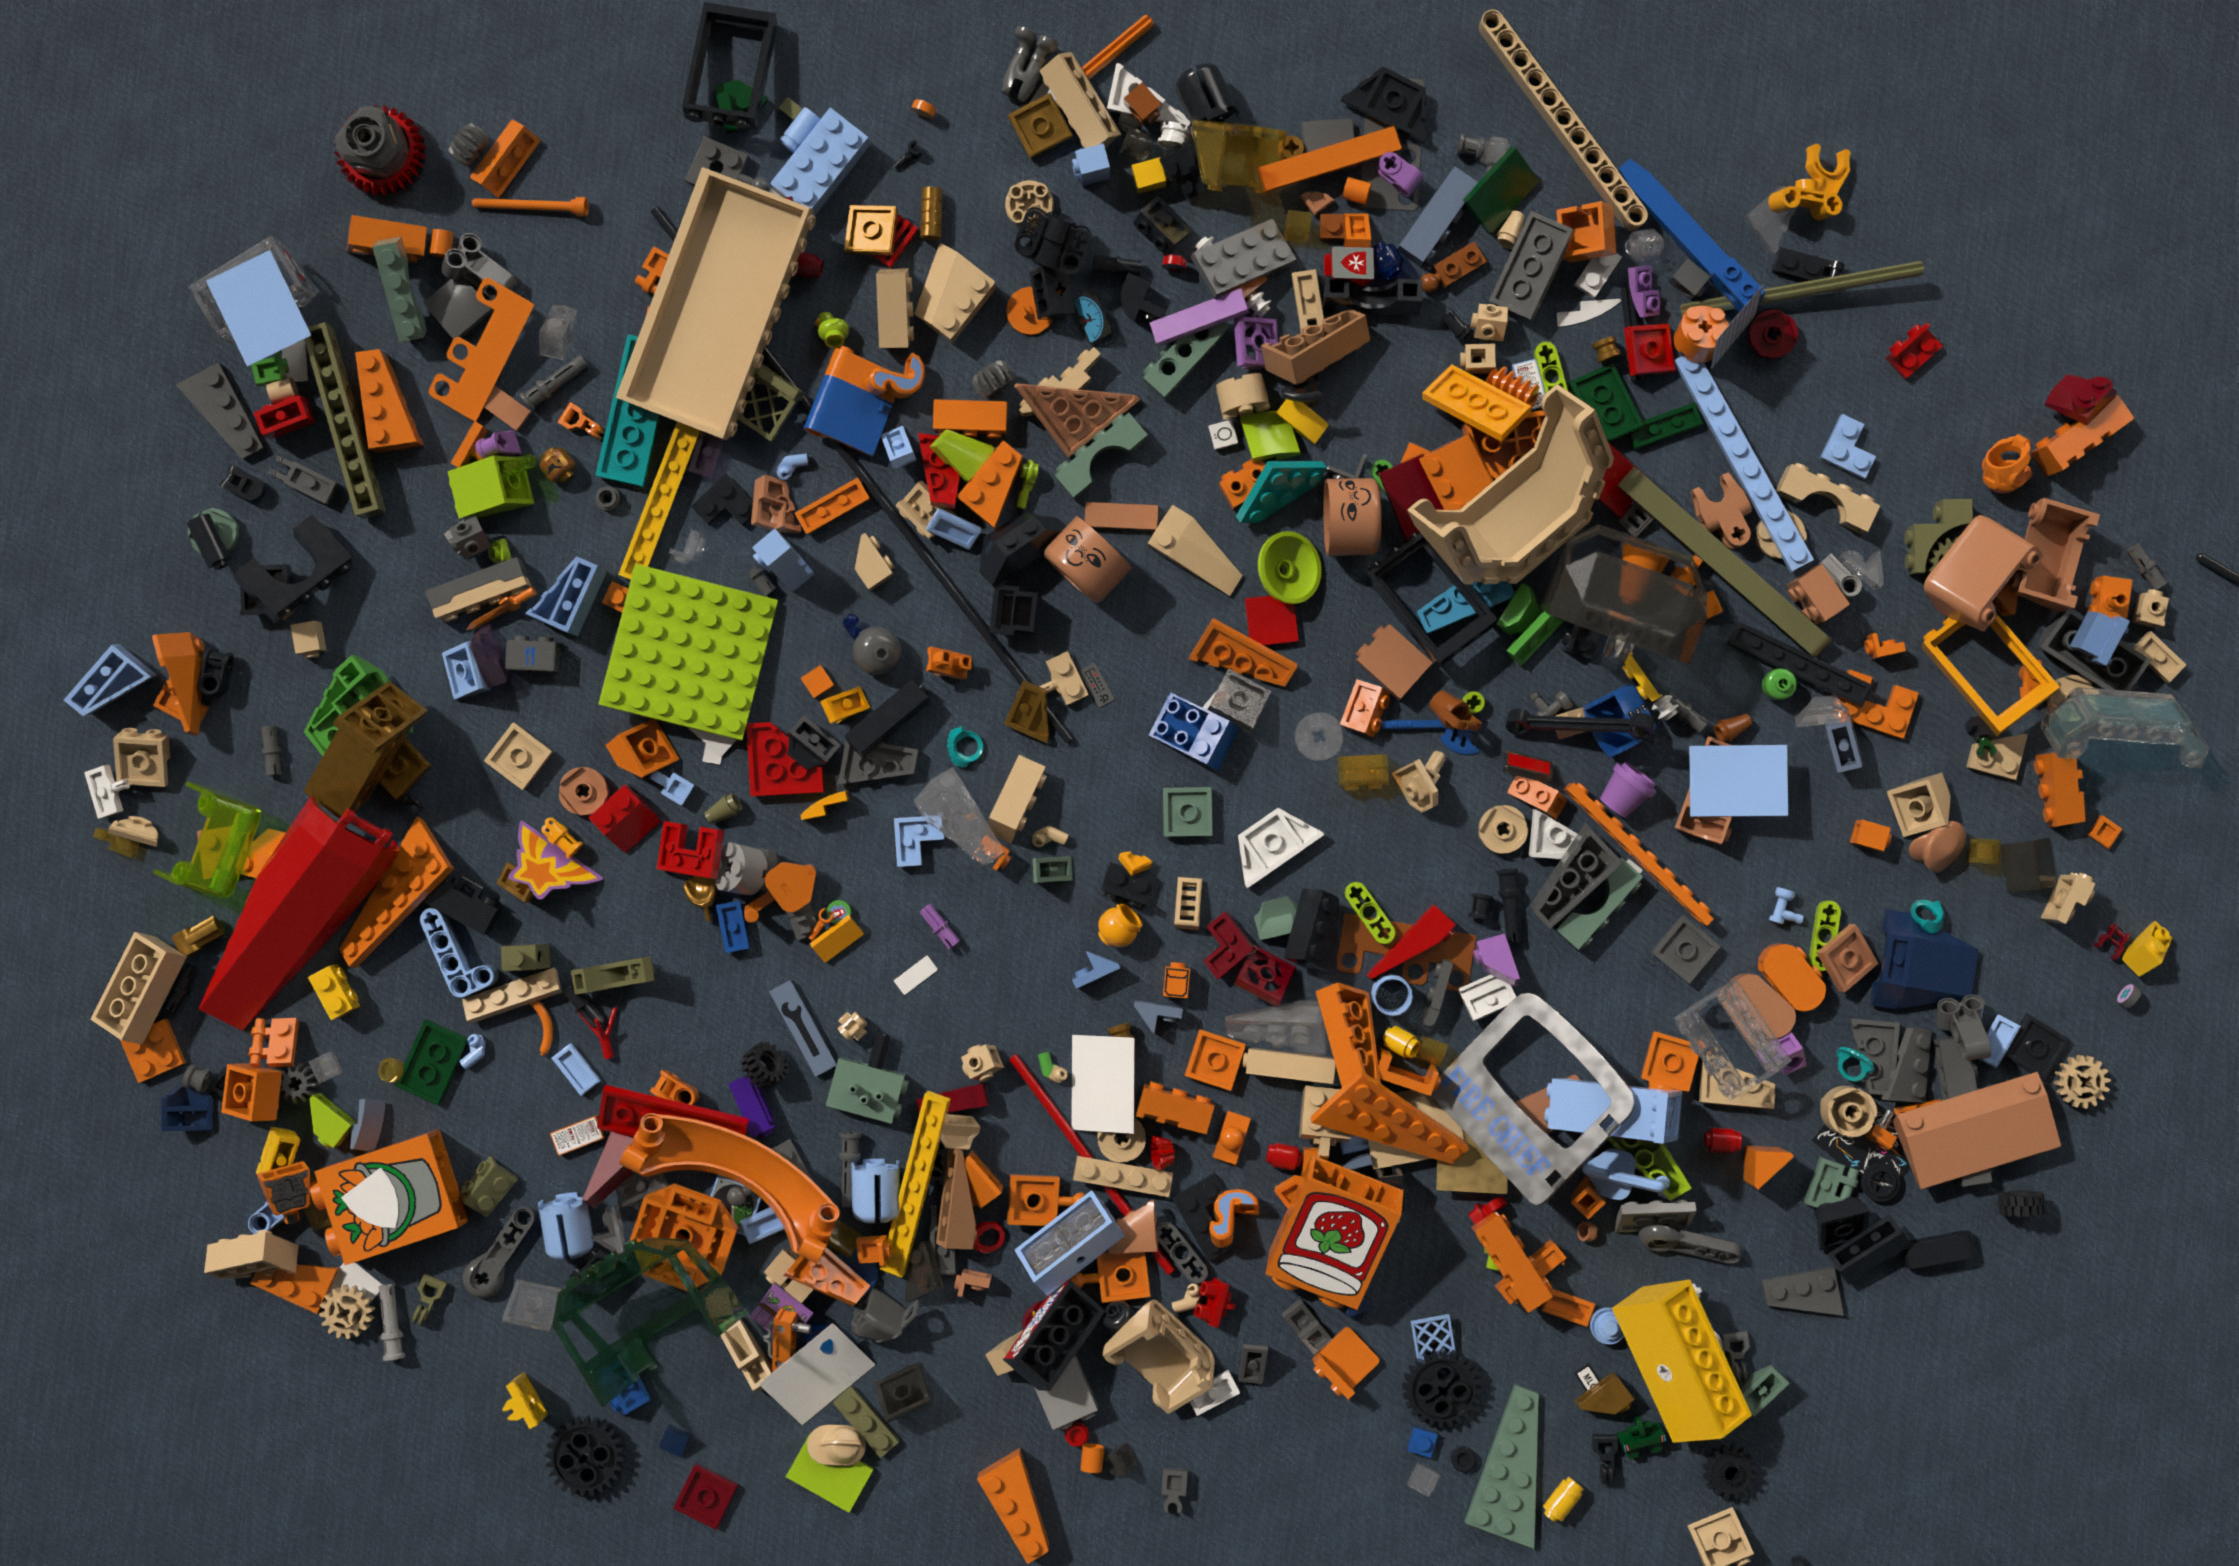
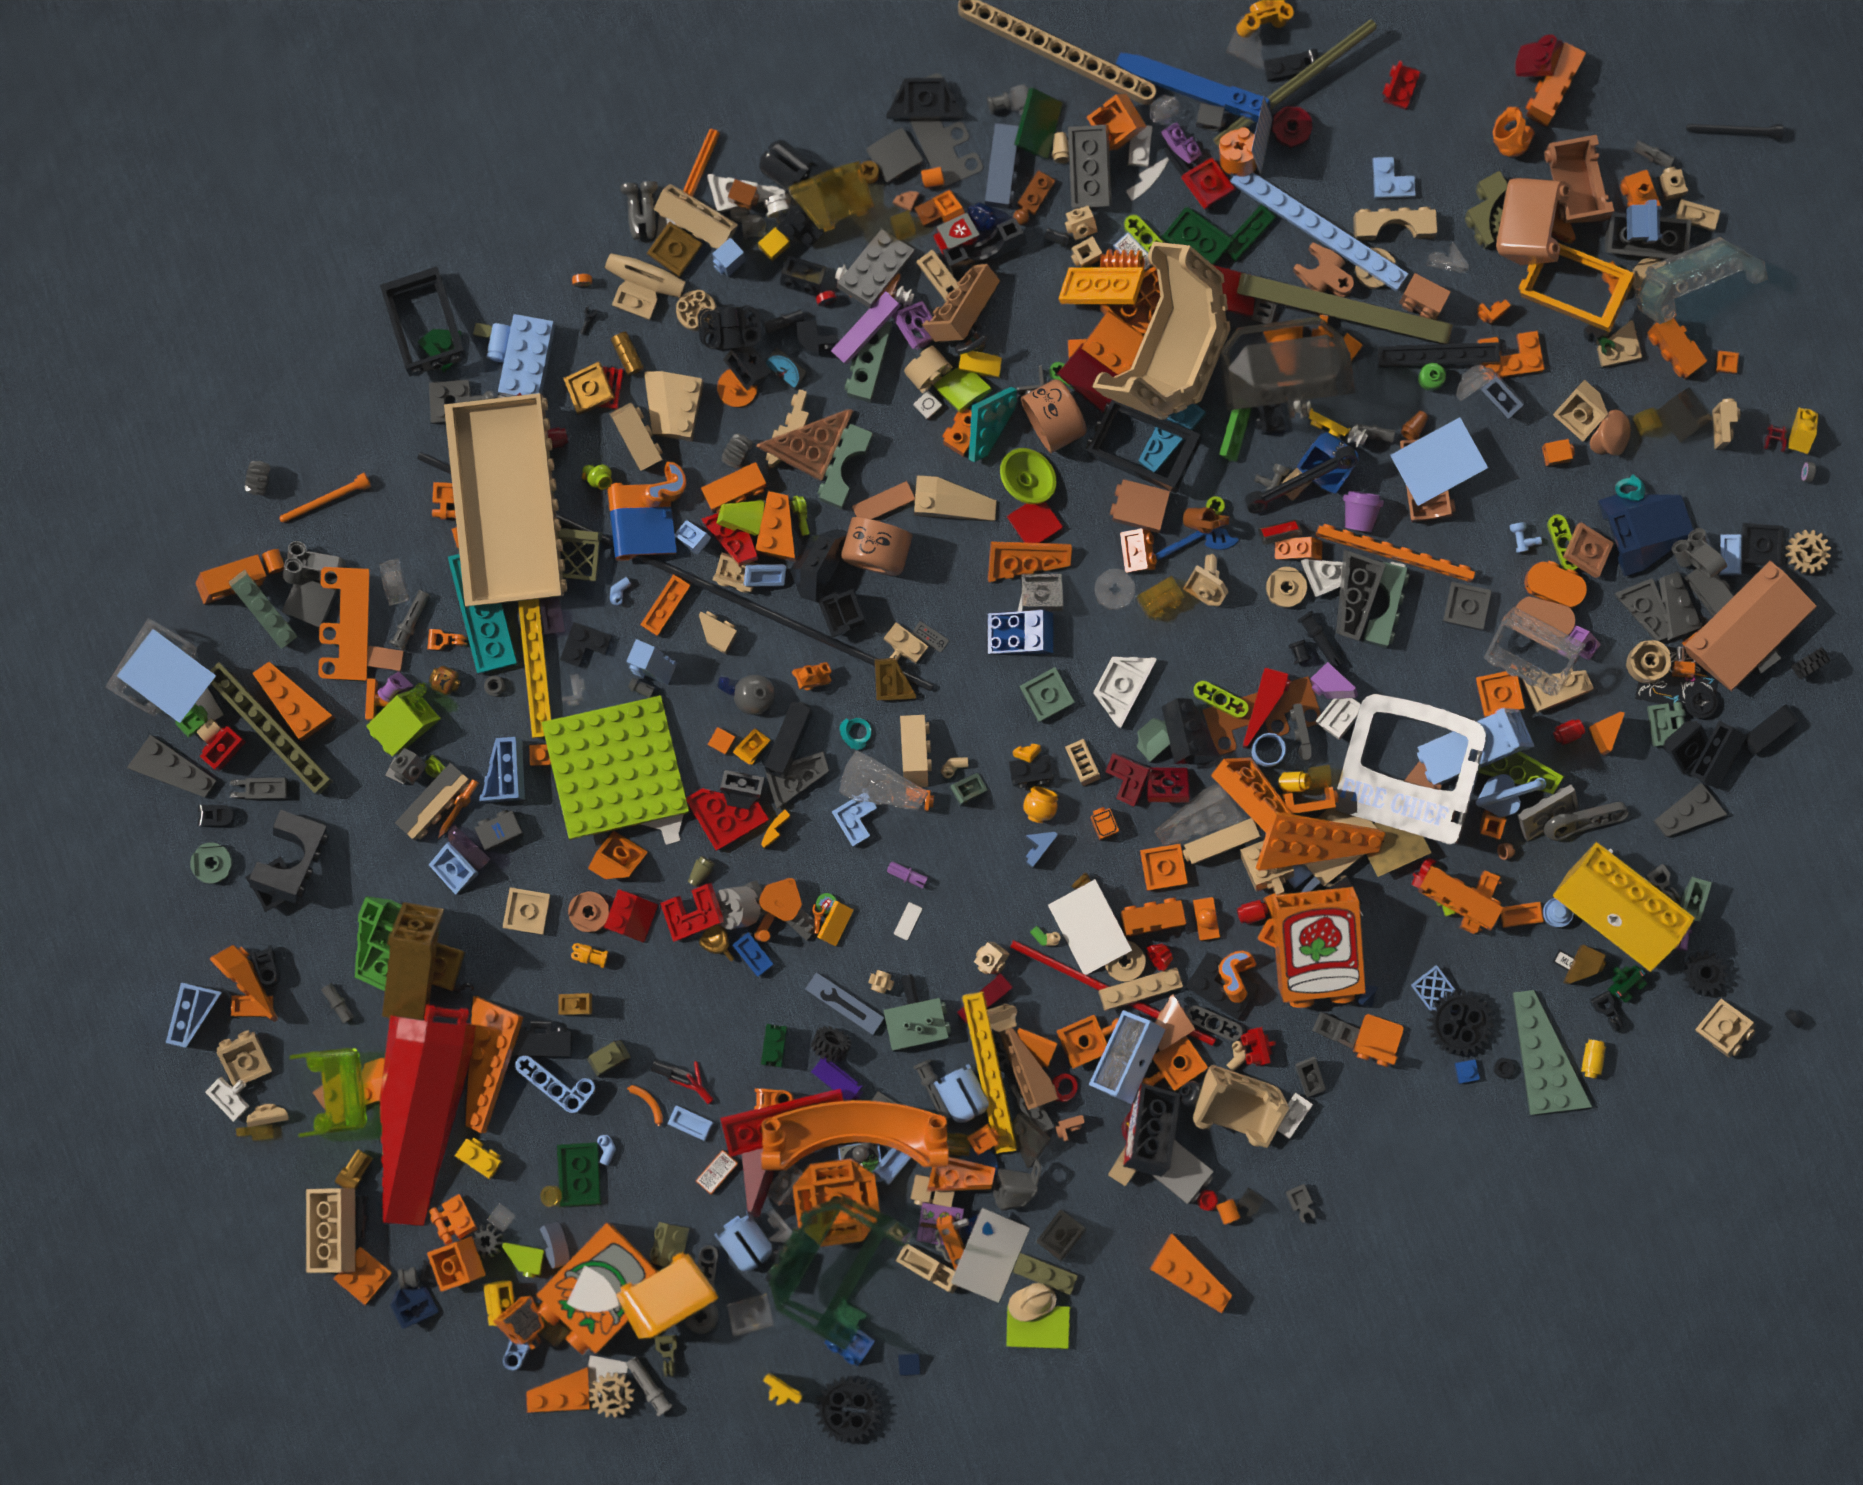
camera: 30 degrees left, 5 degrees down
(209, 541) = (214, 869): black brick -> none
(250, 1254) = (517, 1387): tan wedge -> none
(308, 639) = (324, 905): tan brick -> none
(379, 149) = (191, 516): dark grey piece -> none
(450, 1246) = (666, 1296): none -> light orange windscreen
(505, 158) = (288, 474): orange panel -> none
(512, 995) = (613, 1092): tan plate -> none
(545, 865) = (590, 980): sticker -> none
(612, 975) = (683, 1035): olive arch -> none
(675, 787) = (656, 873): light blue plate -> none
(704, 1034) = (774, 1045): none -> dark green brick
(705, 1496) = (954, 1393): dark red tile -> none
(772, 506) = (620, 627): nougat slope -> none
(986, 144) = (641, 284): none -> tan plate
(1149, 1012) = (1097, 855): sand blue slope -> none
(1329, 159) = (900, 164): orange tile -> none
(1401, 175) = (959, 149): medium lavender piece -> none
(1423, 1479) = (1482, 1099): clear tile -> none
(1520, 611) = (1214, 421): bright green slope -> none
(1606, 349) = (1176, 199): pearl gold wheel -> none
(1840, 575) = (1434, 274): light grey piece -> none
(1866, 1065) = (1624, 620): teal piece -> none

